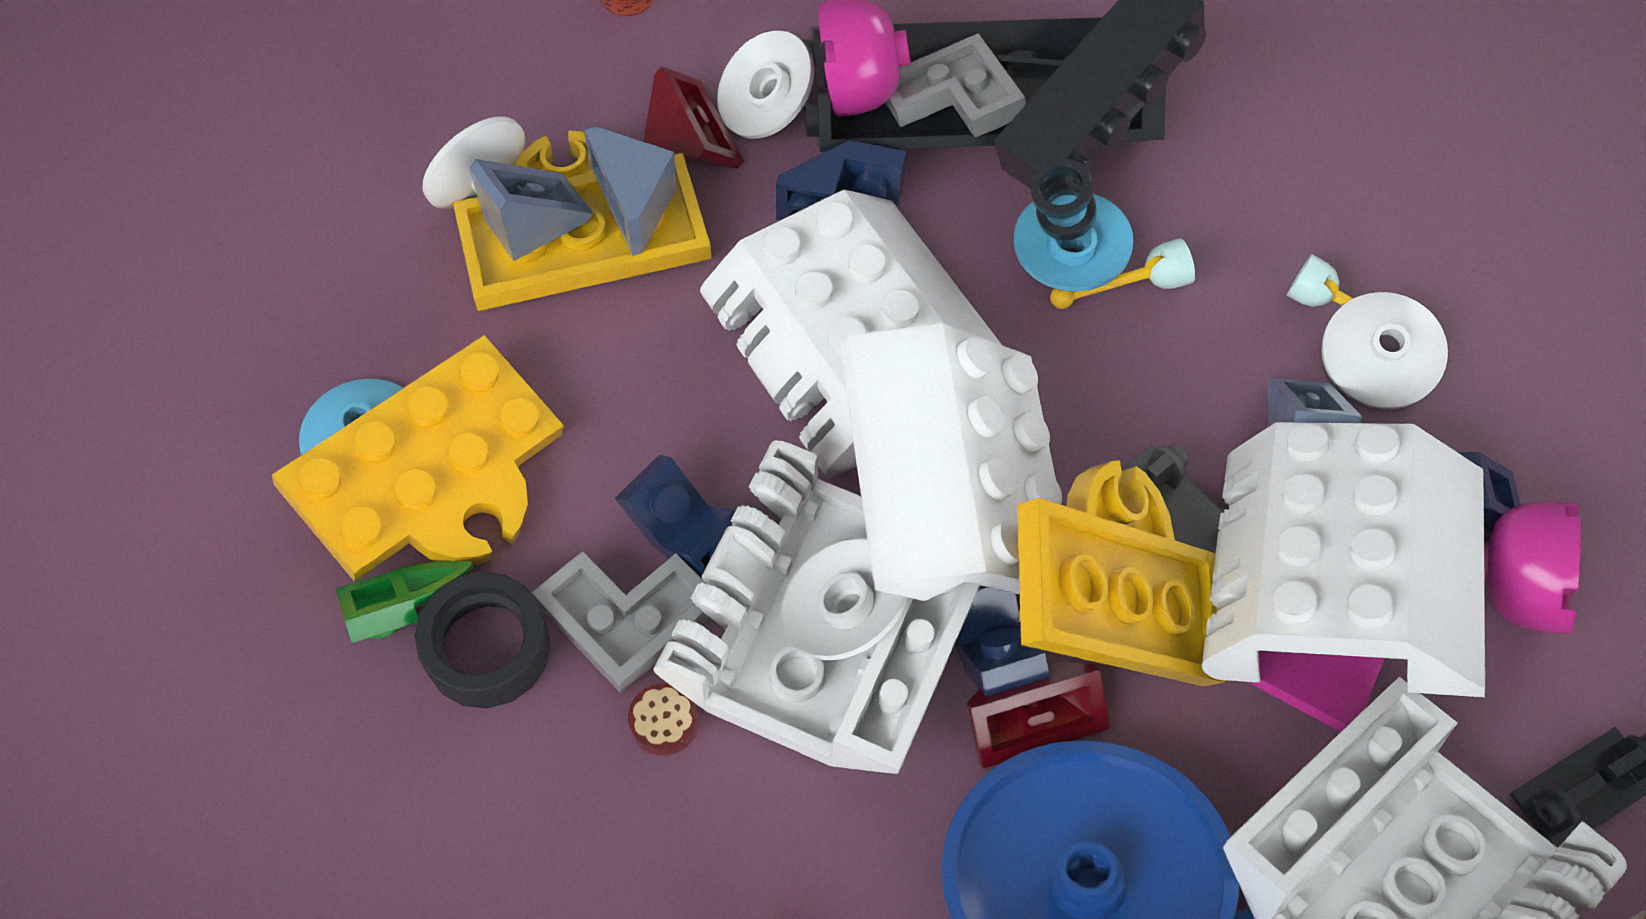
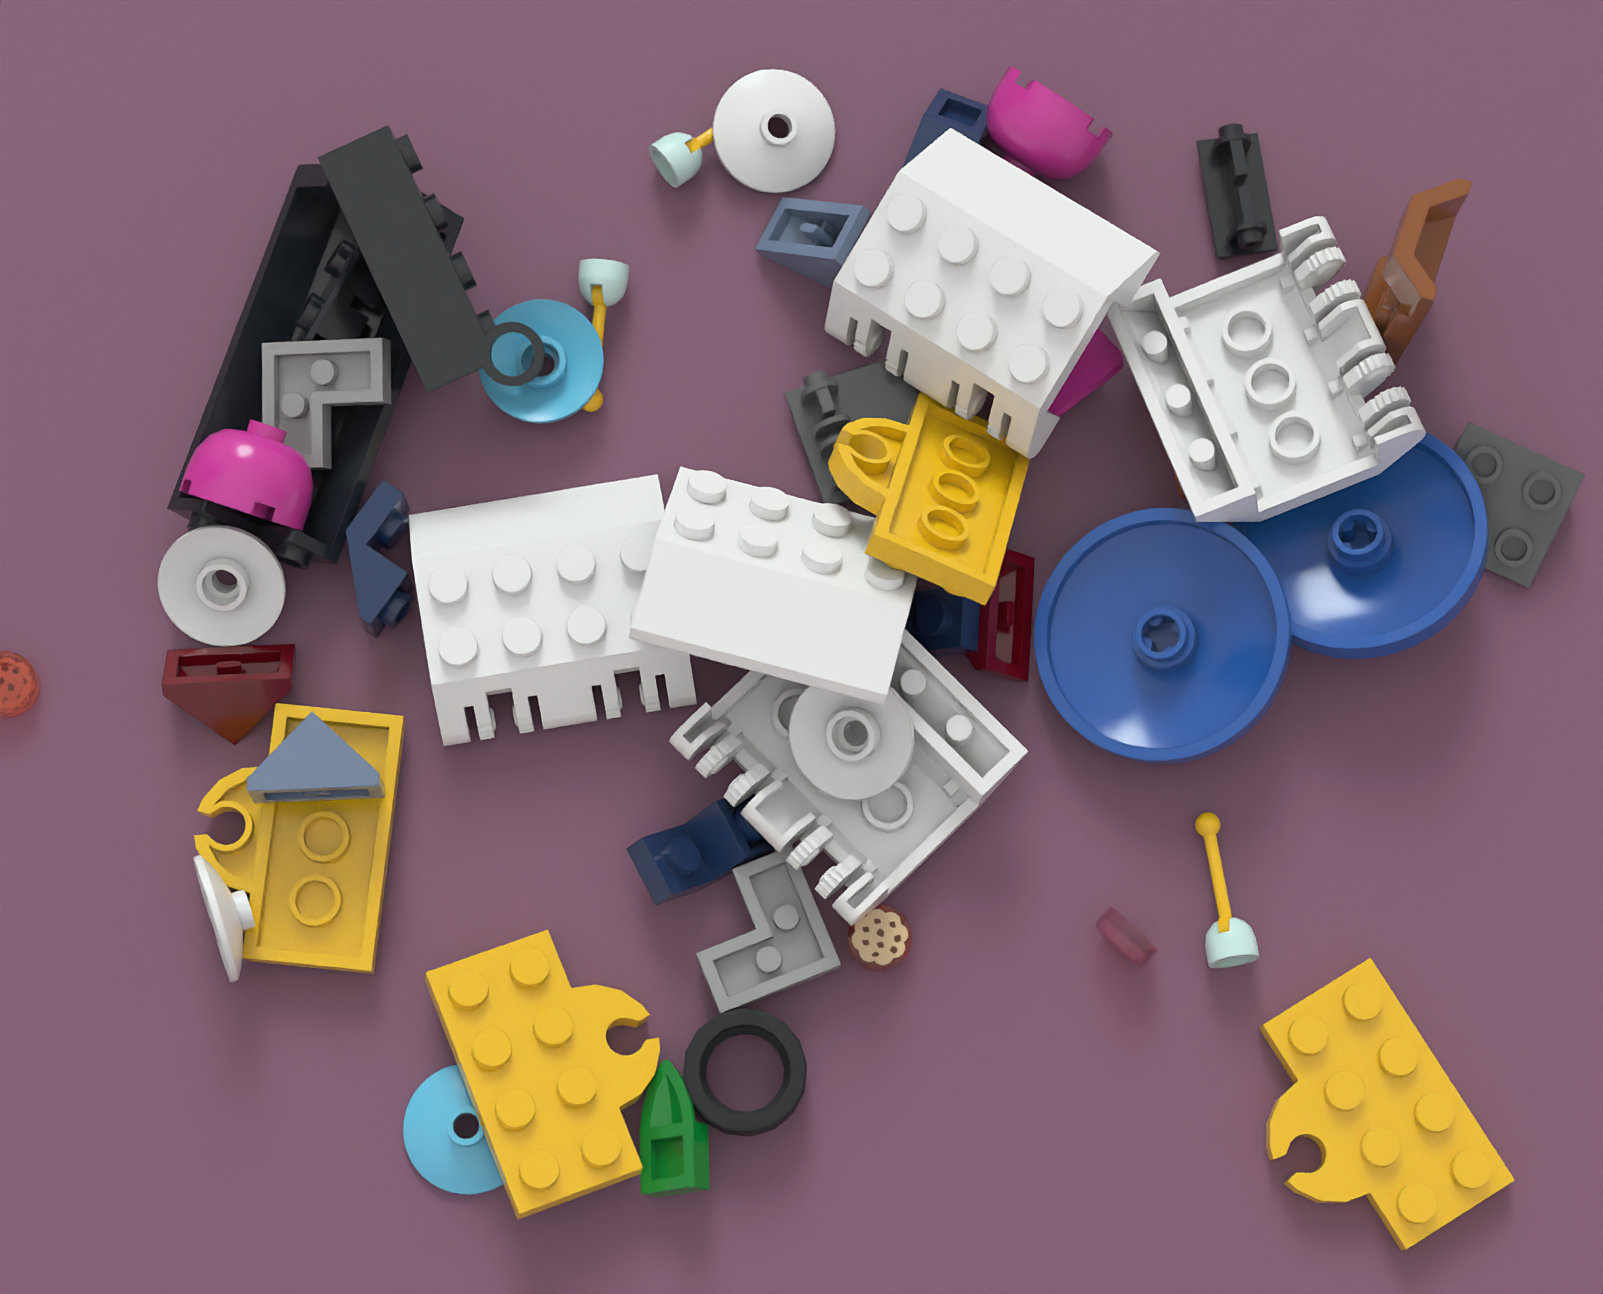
camera: 70 degrees left, 15 degrees up
(526, 205) = (297, 876): sand blue slope -> none

